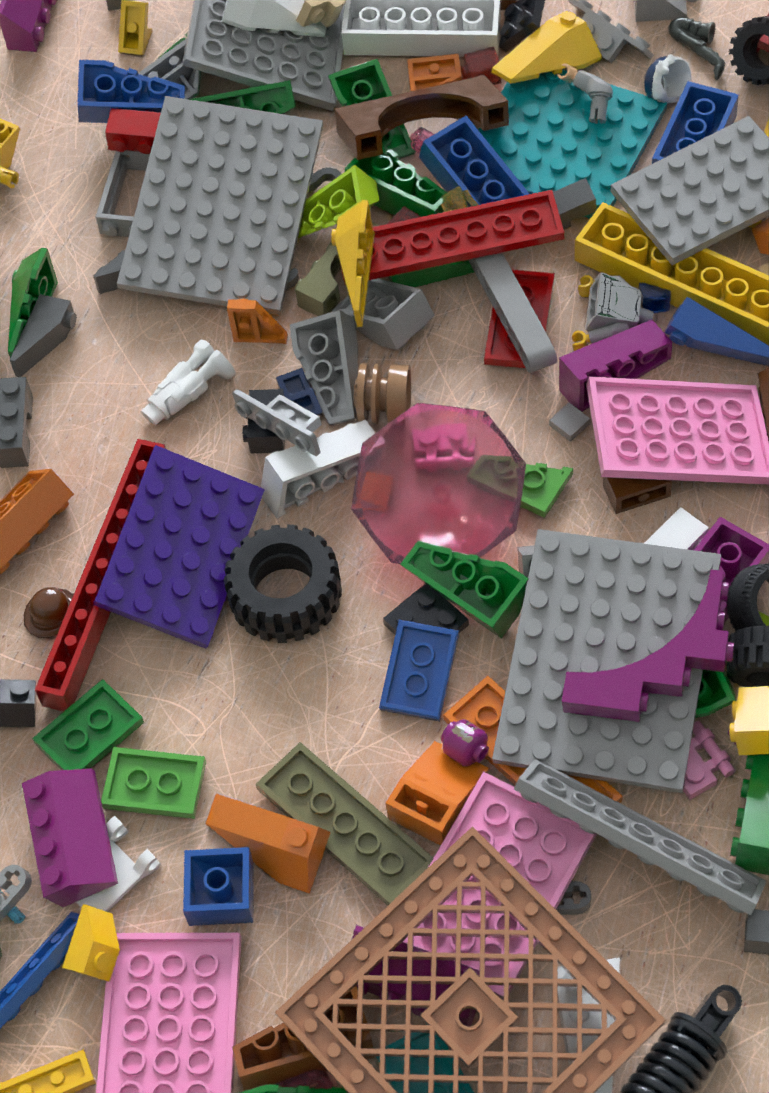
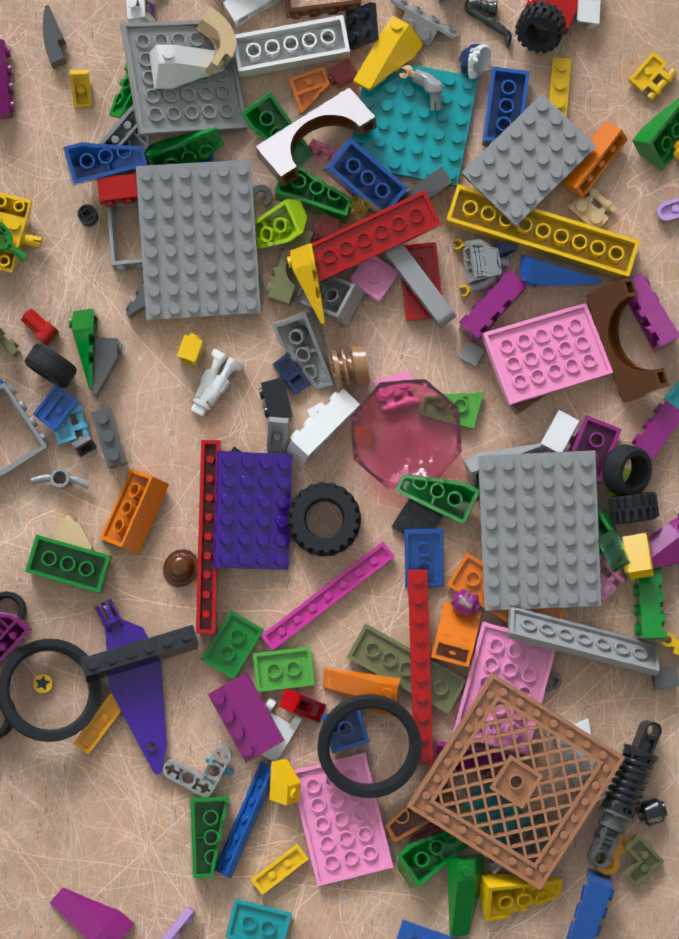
camera: 20 degrees left, 25 degrees up
(88, 163) = (90, 218): none -> black wheel
(162, 837) = (302, 705): none -> red slope
(165, 333) = (191, 350): none -> yellow brick
(184, 863) = (384, 787): none -> black tyre
(251, 457) = (277, 434): none -> light grey slope
(253, 323) = (243, 328): orange wing -> none
(255, 694) = (327, 596): none -> dark pink plate
(282, 417) = (295, 405): light grey bracket -> none
(366, 820) = (420, 661): none -> red plate
(456, 301) = (374, 278): none -> bright pink plate
(622, 690) = (595, 518): magenta arch -> none
(719, 701) = (613, 550): none -> clear green plate

